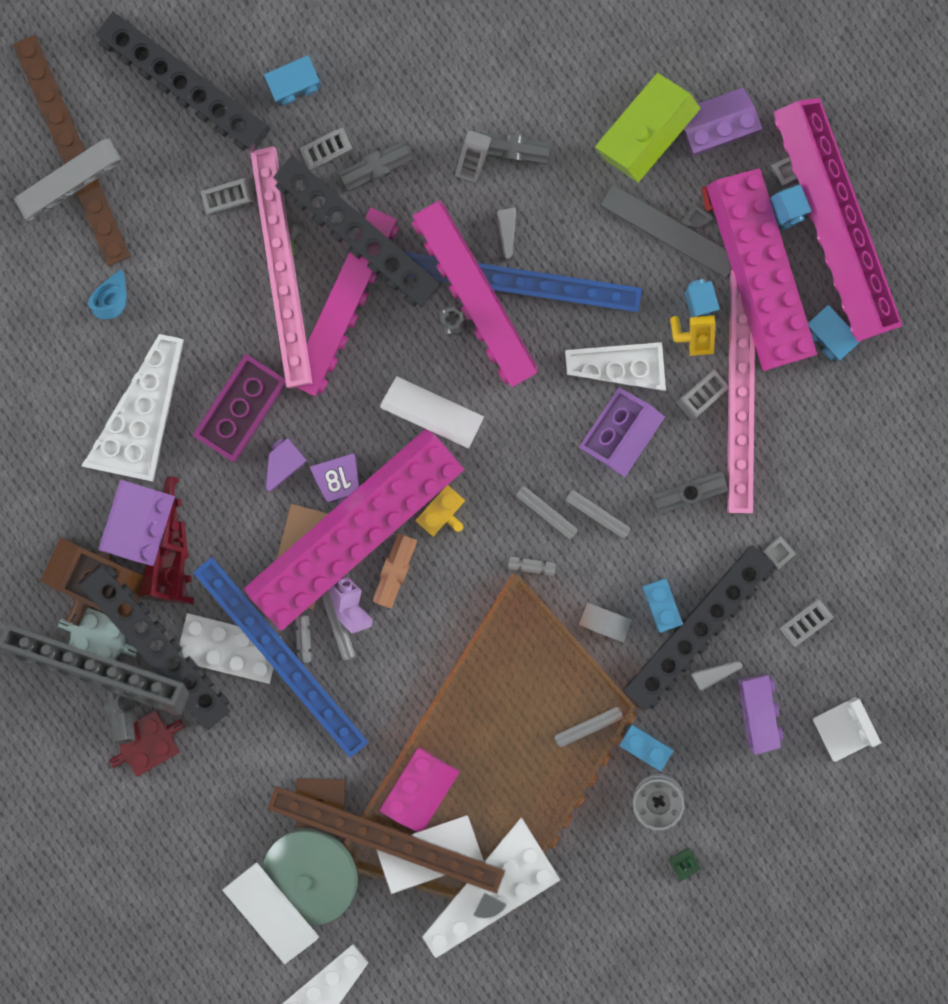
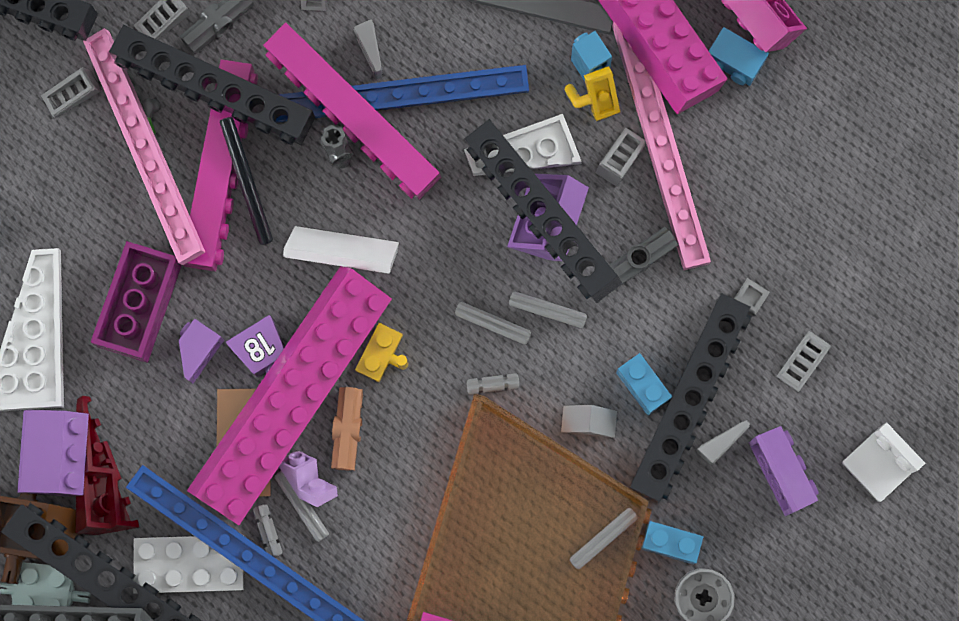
camera: 10 degrees left, 10 degrees down
(364, 325) = (246, 180): none -> black axle
(591, 349) = (489, 138): none -> black brick

